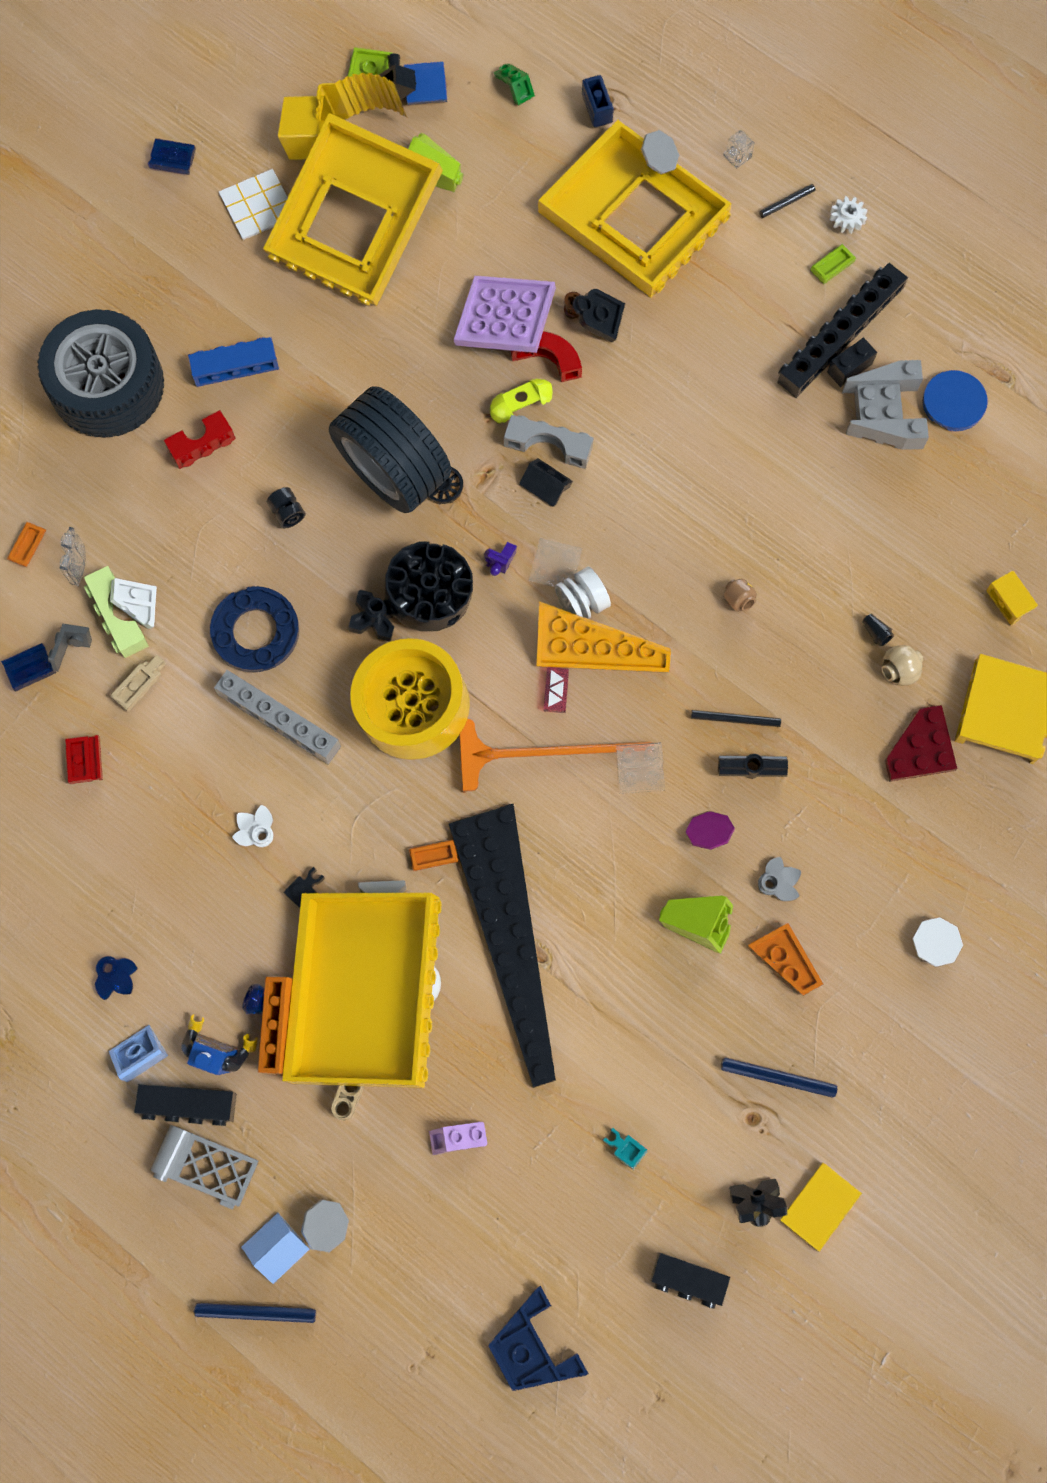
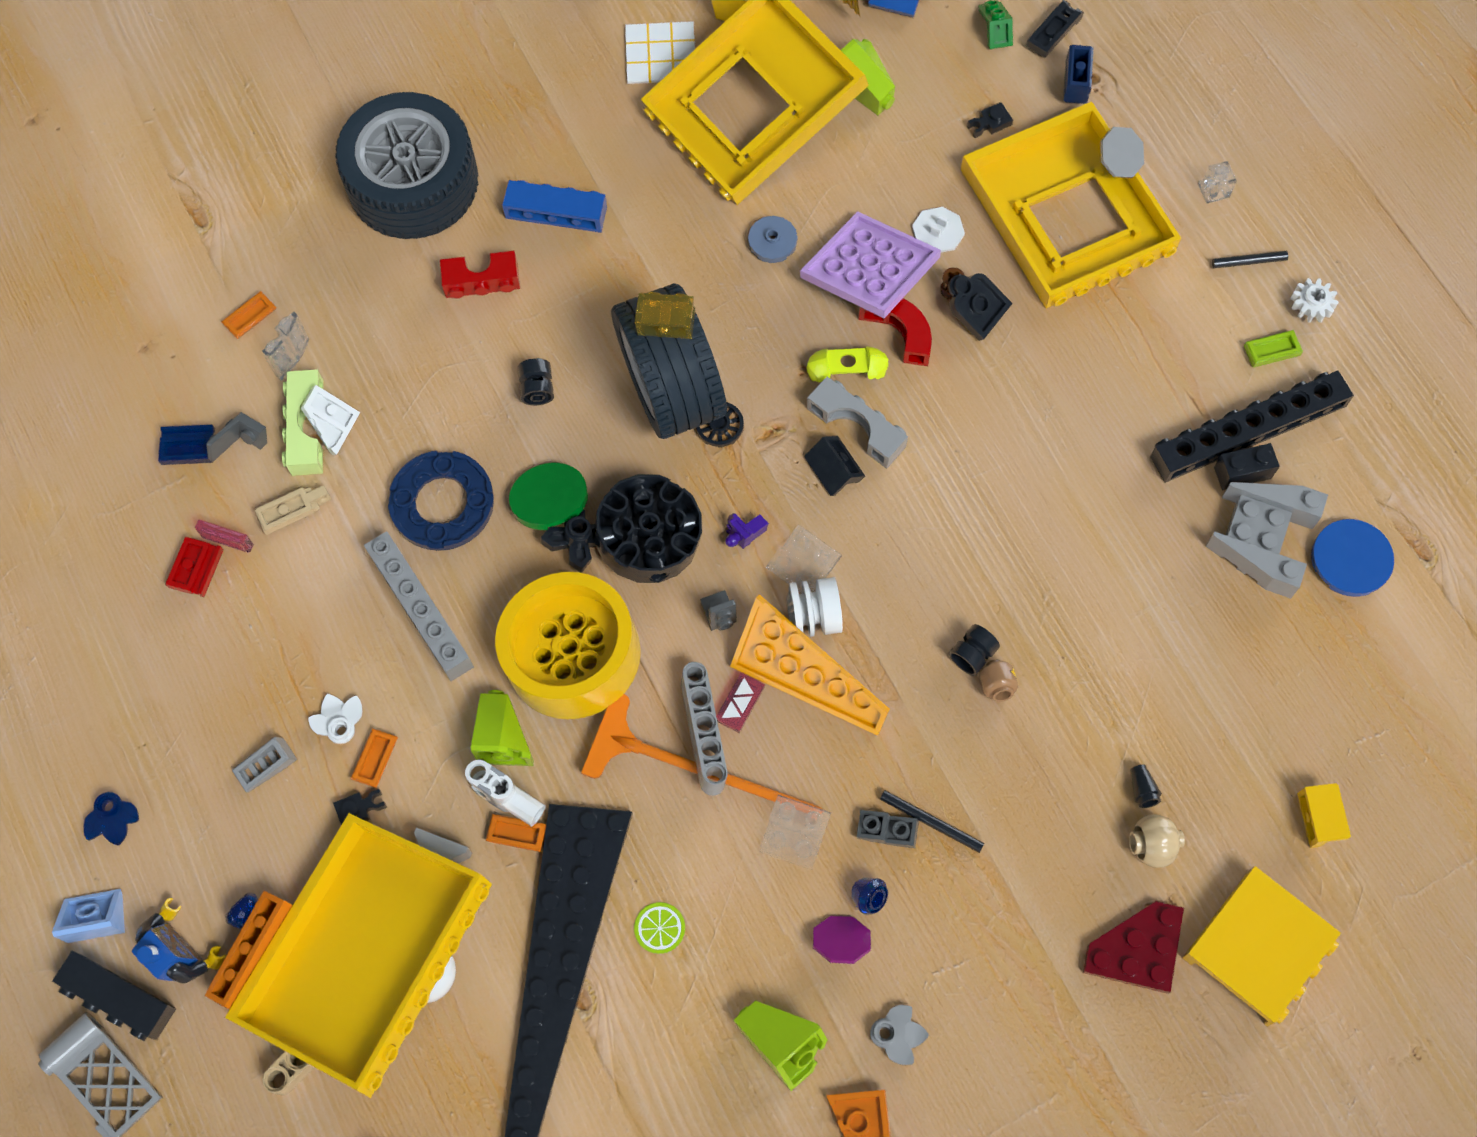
camera: 25 degrees right, 5 degrees down
(96, 726) = (224, 536): none -> clear pink tile
(231, 874) = (278, 765): none -> light grey slope
(298, 845) = (374, 758): none -> orange tile
(338, 592) = (548, 495): none -> green tile
(383, 413) = (665, 315): none -> clear yellow brick
(387, 786) = (498, 732): none -> lime slope
(404, 822) = (513, 800): none -> white connector
(421, 331) = (770, 249): none -> sand blue plate
(509, 628) = (719, 610): none -> dark grey bracket
(542, 265) = (939, 228): none -> white piece
(543, 728) = (703, 740): none -> light grey beam
(546, 162) = (992, 119): none -> black plate
(561, 70) = (1054, 29): none -> black plate
(572, 879) = (659, 928): none -> lime sticker
(706, 737) = (887, 829): none -> dark grey slope
(712, 579) = (976, 647): none -> black wheel
(715, 790) = (869, 895): none -> clear blue cone
(767, 766) = (943, 893): black piece -> none

